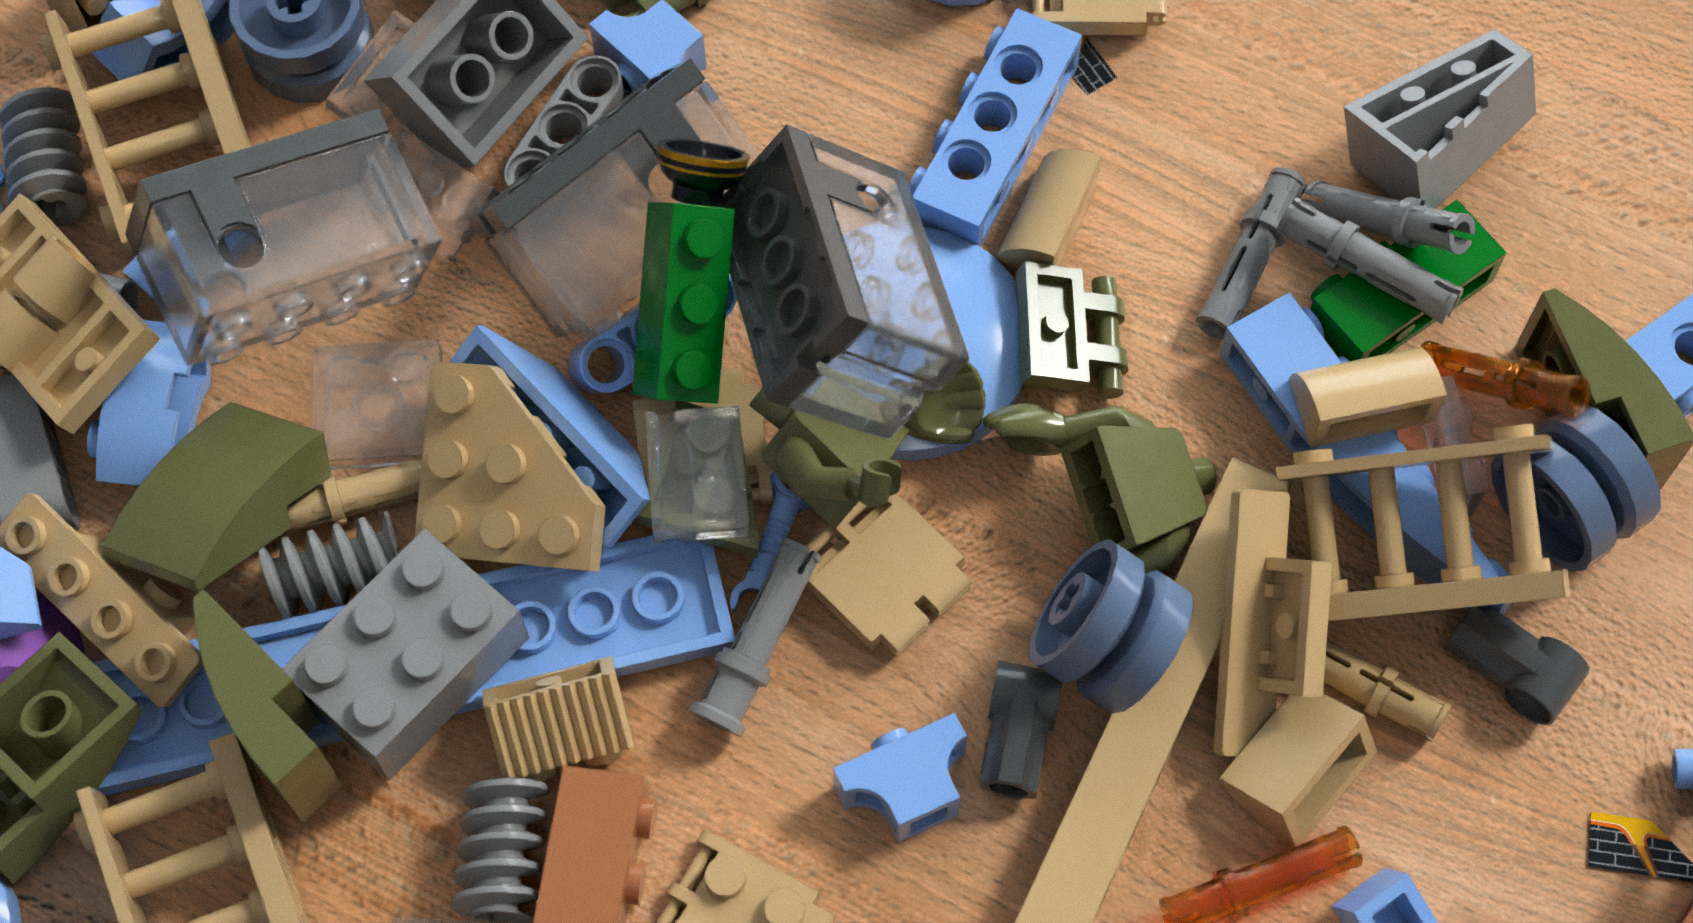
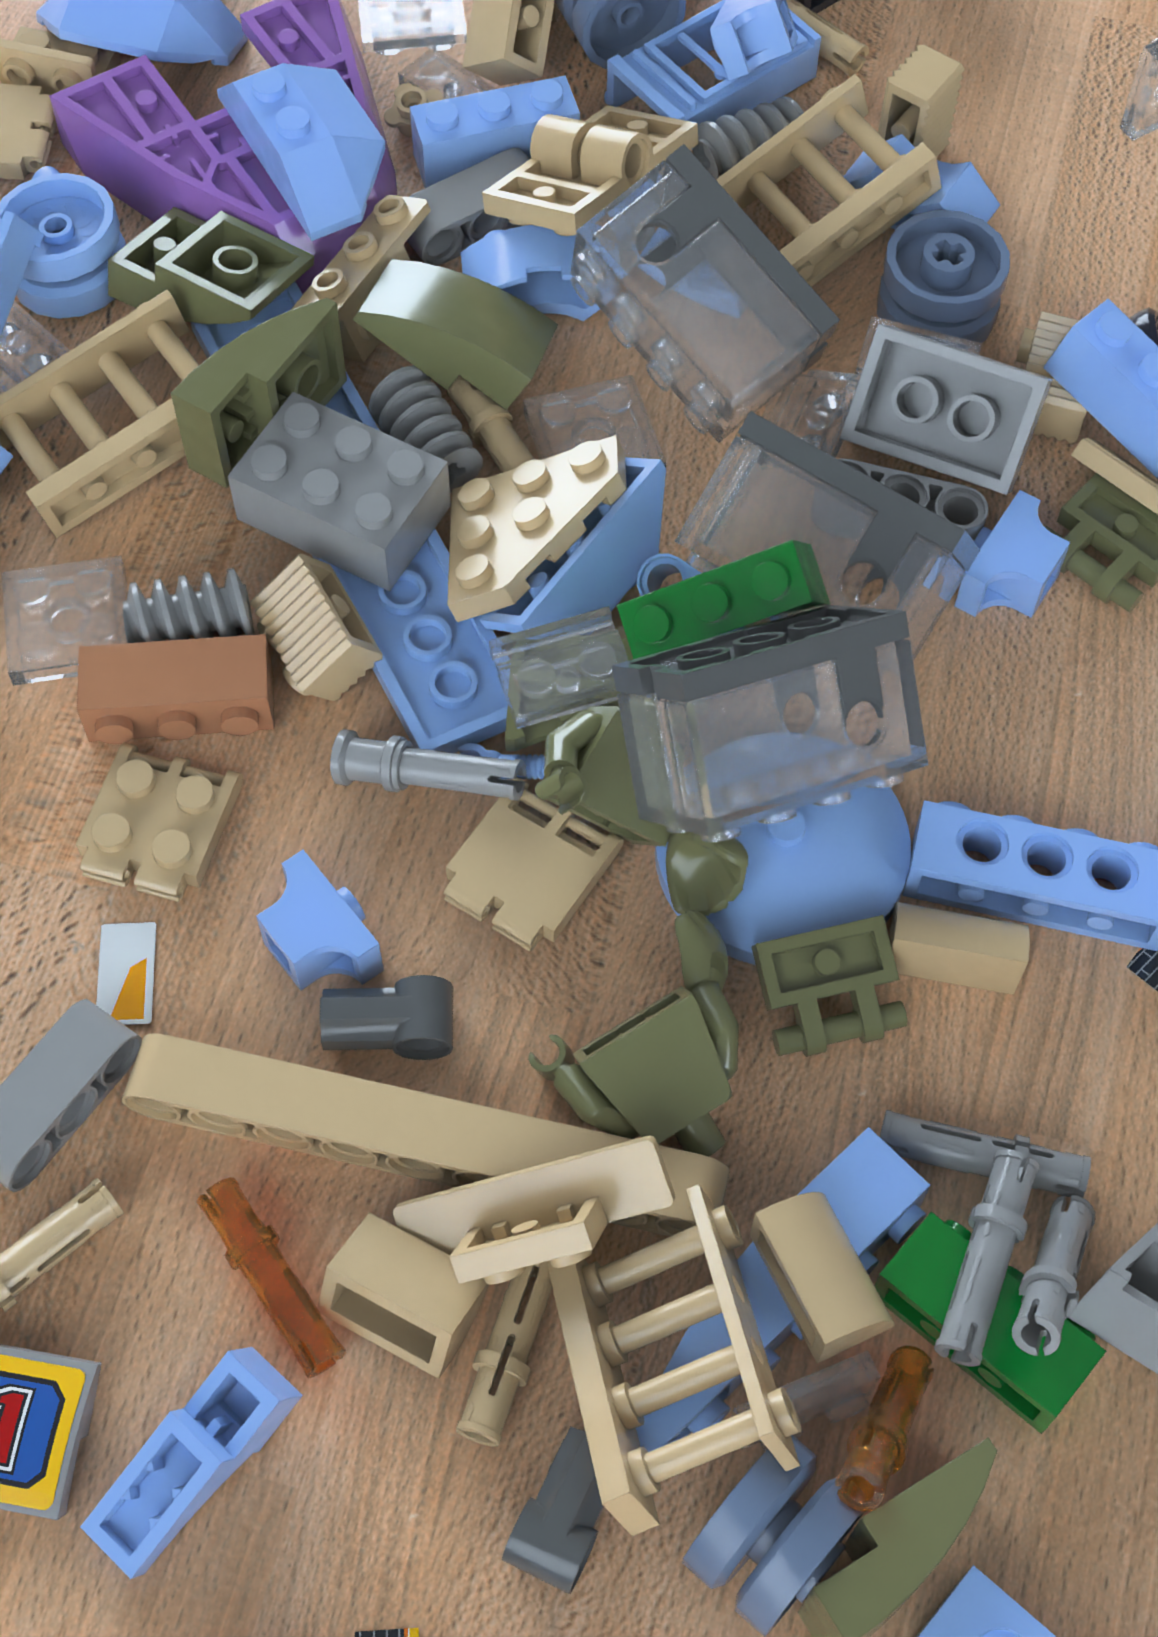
camera: 75 degrees right, 5 degrees down
(700, 169) = (853, 568): black piece -> none
(1111, 627) = (486, 1068): sand blue wheel -> none

